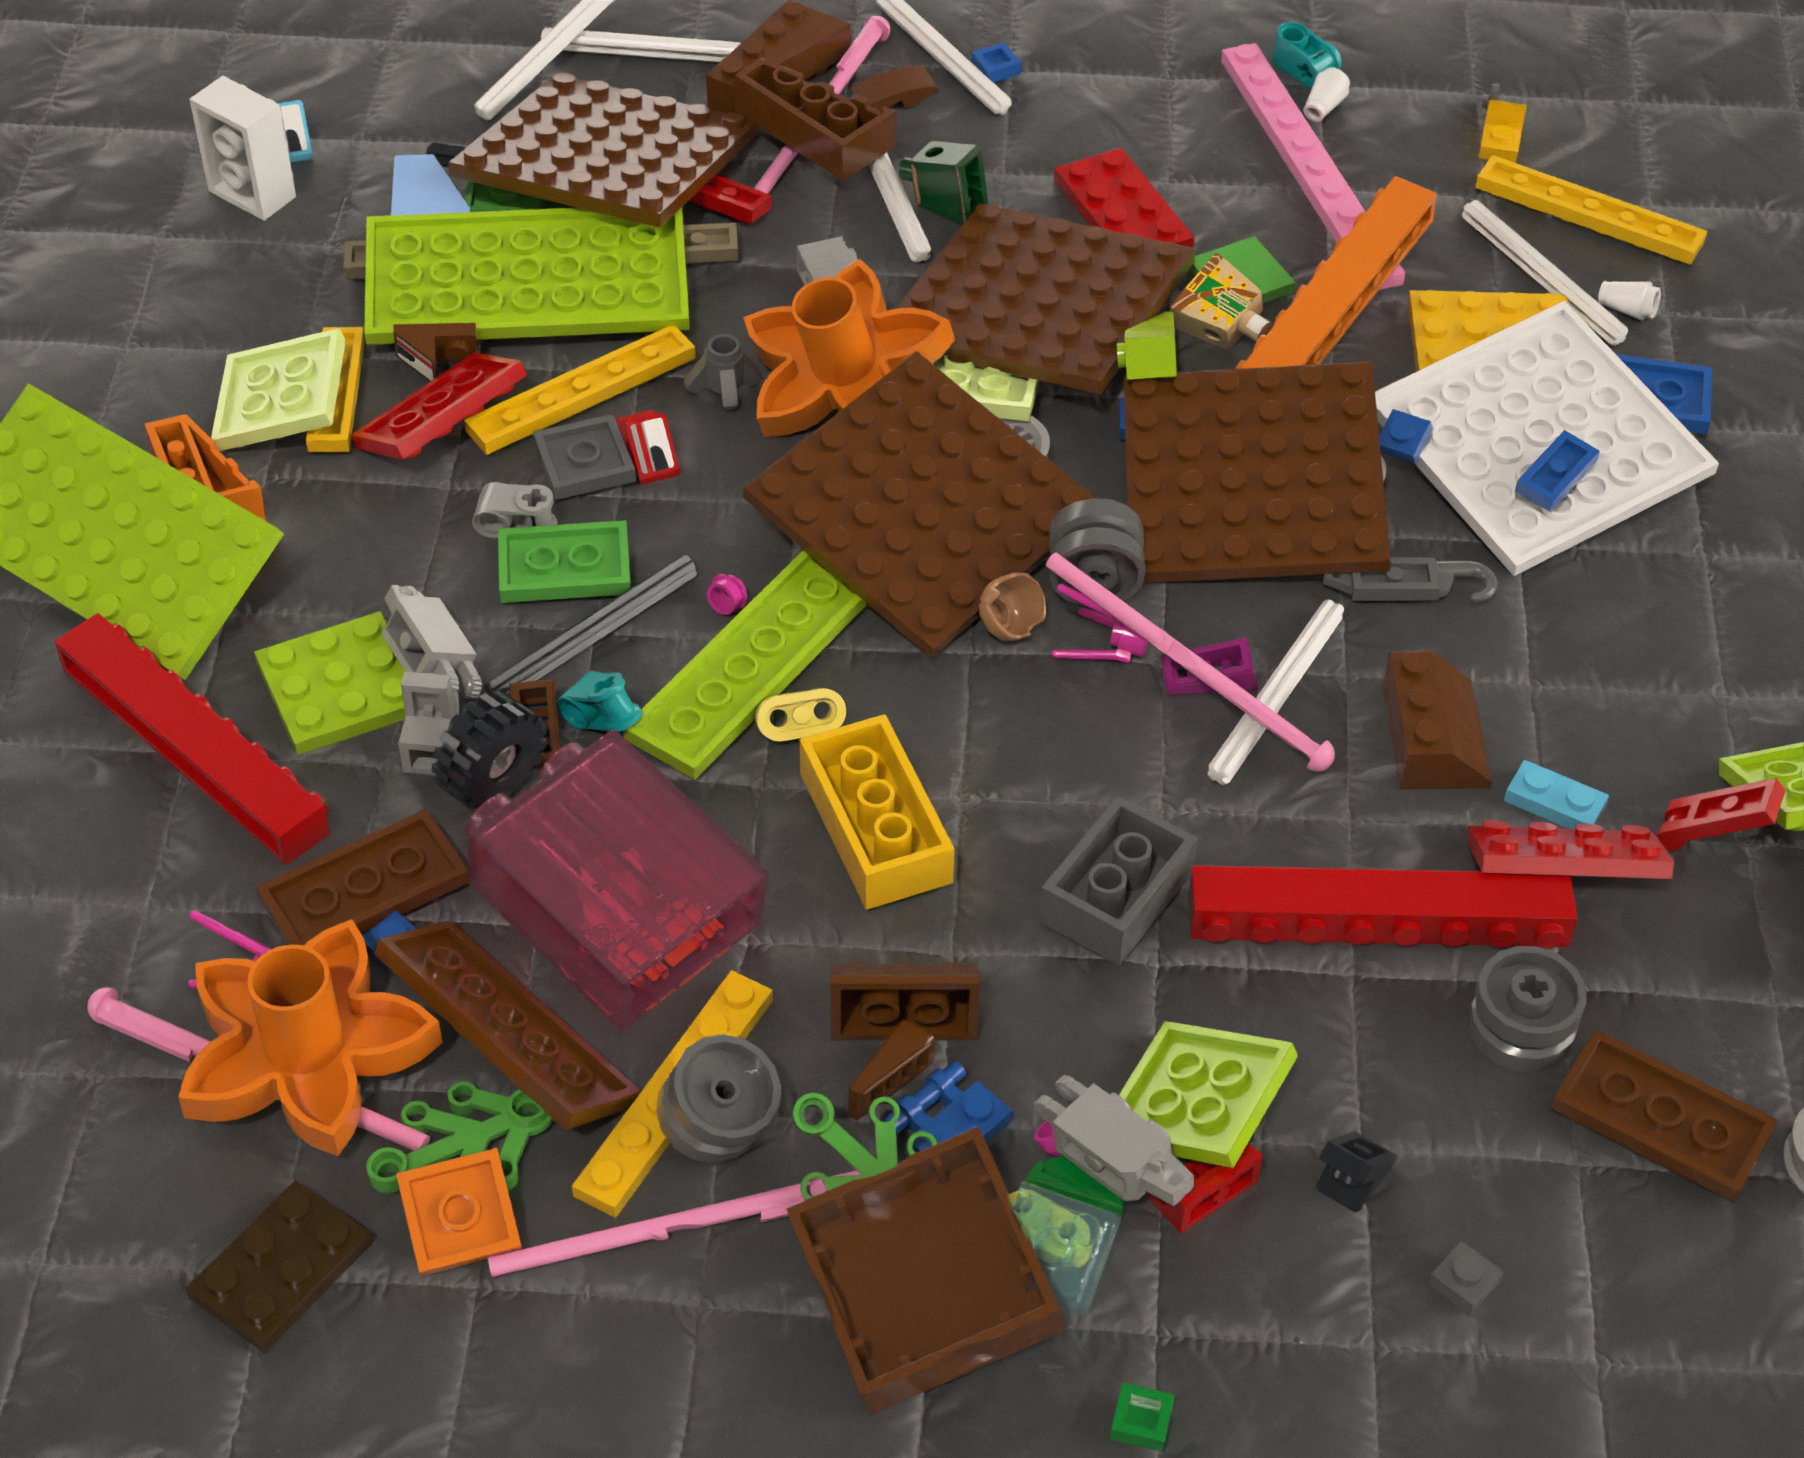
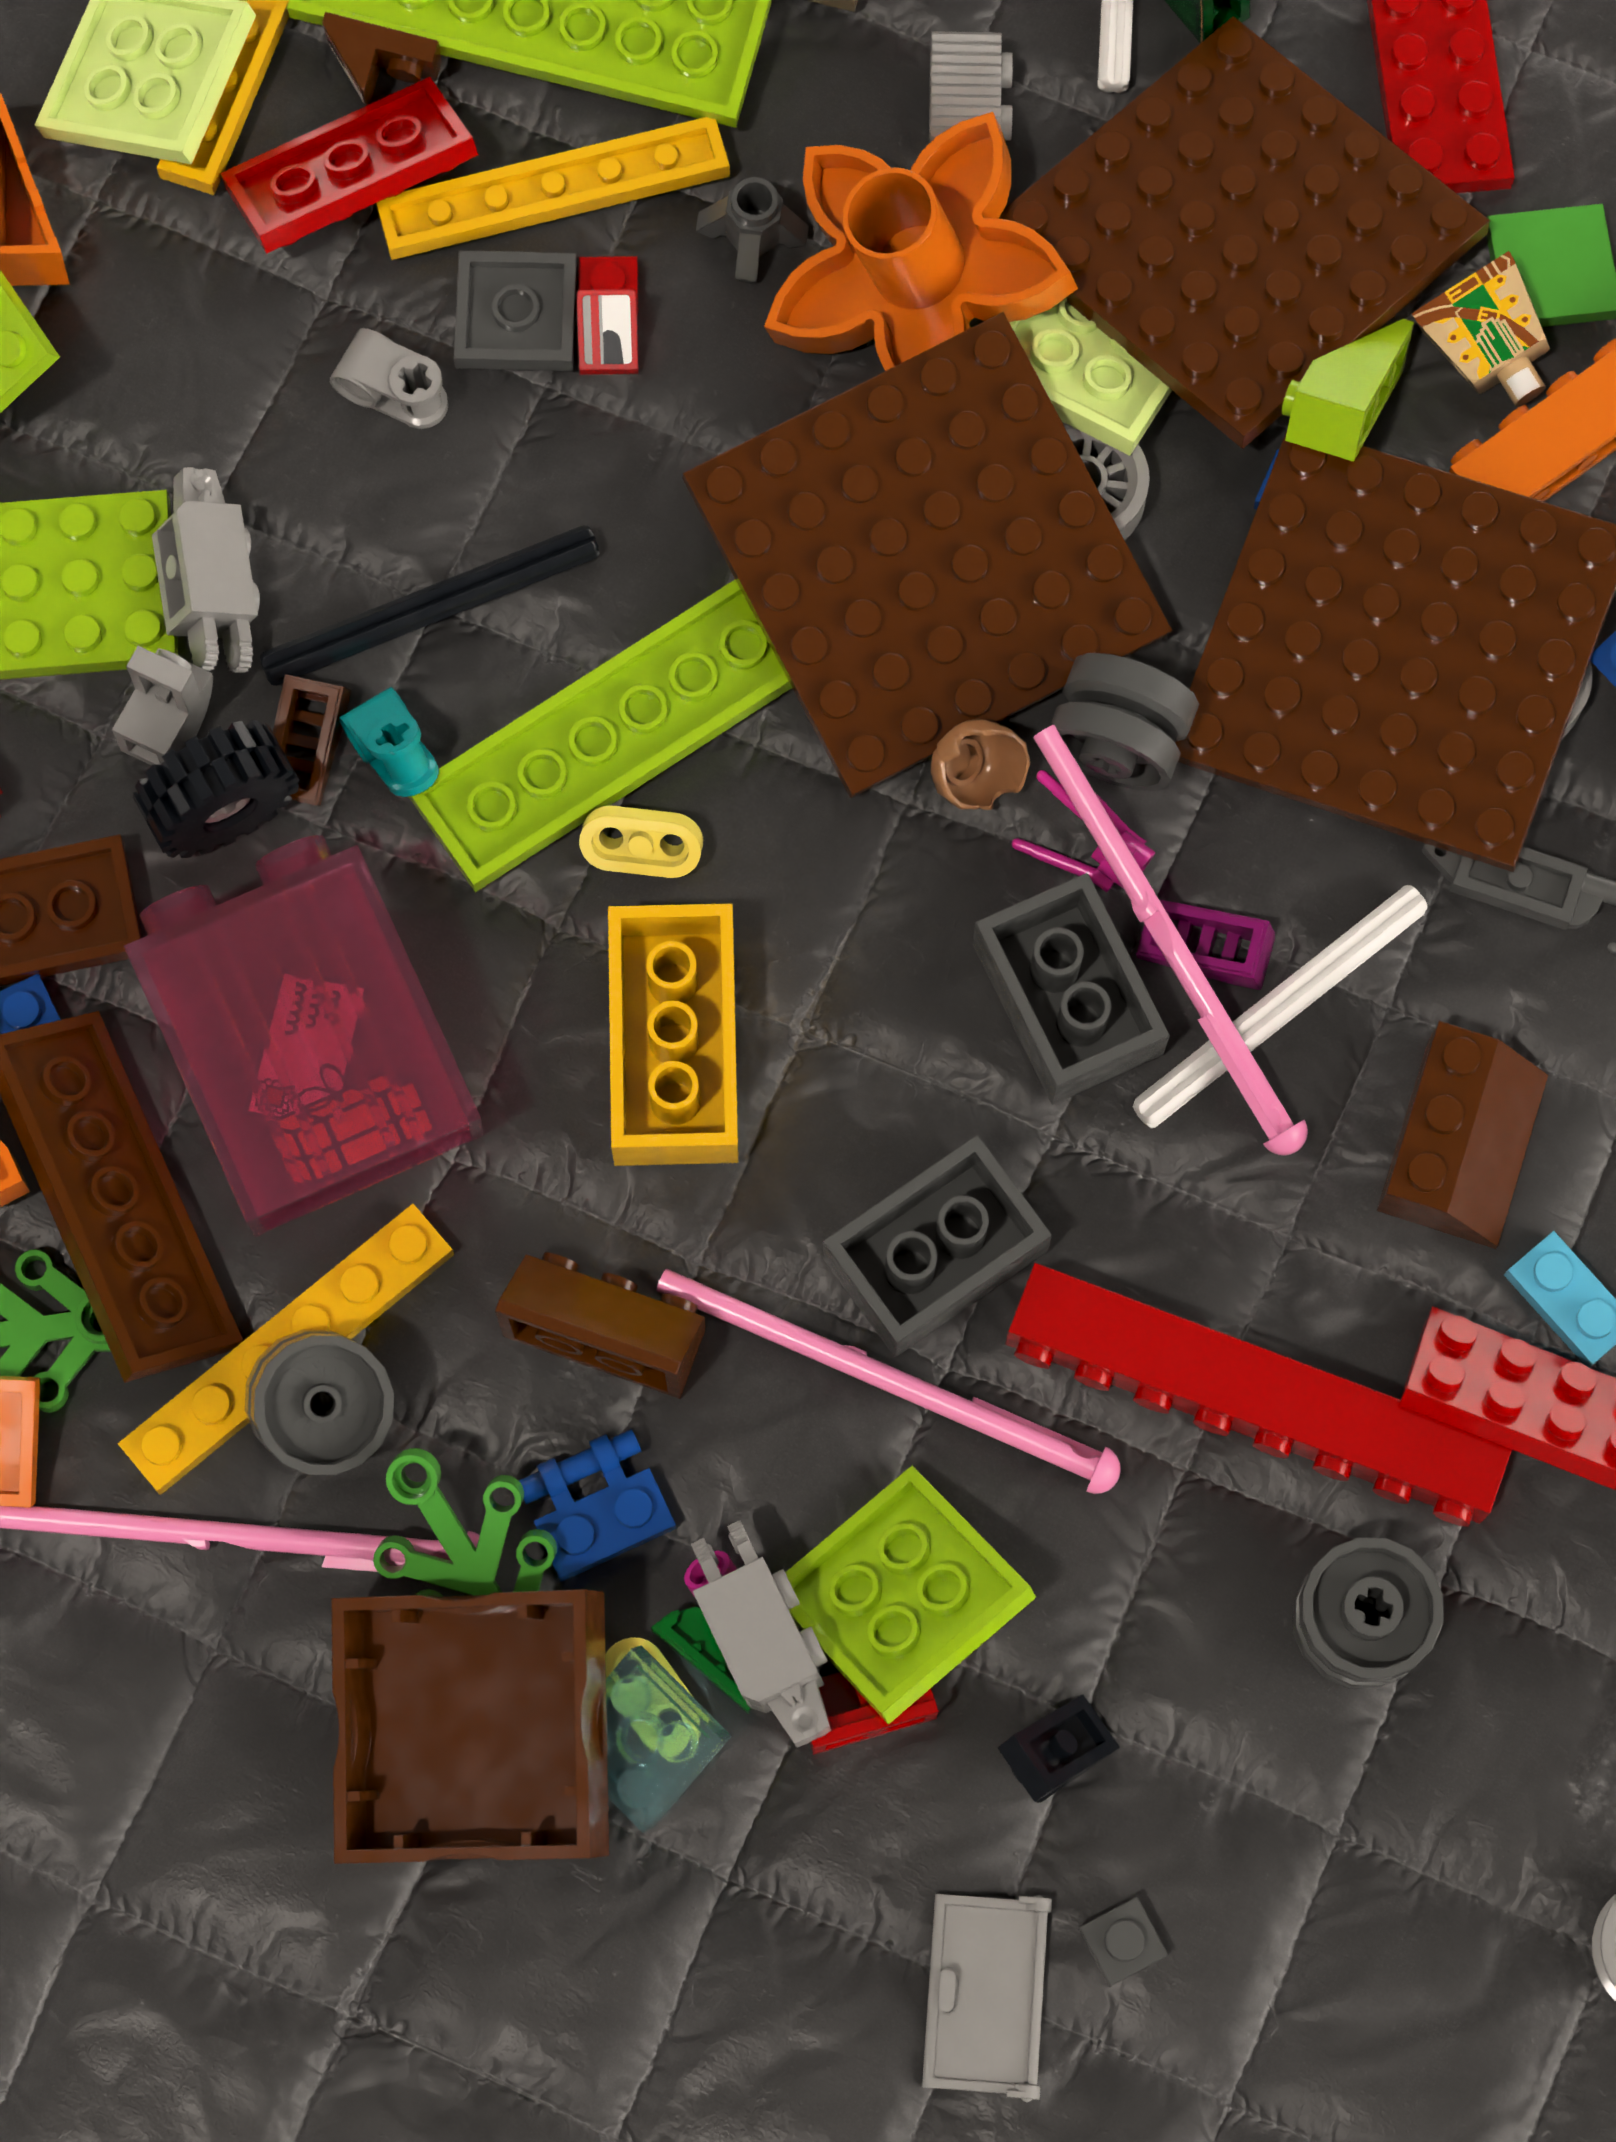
camera: 20 degrees right, 25 degrees up
(563, 561) = (428, 483): bright green plate -> none
(727, 594) = (621, 609): dark pink plate -> none
(894, 1065) = (558, 1410): reddish brown slope -> none
(1135, 710) = (1070, 988): none -> dark grey brick
(1142, 1417) = (658, 1987): green plate -> none
(1297, 986) = (1099, 1467): none -> bright pink bar
(1380, 1326) = (998, 1995): none -> light grey door
(1664, 1115) = (1472, 1815): reddish brown plate -> none

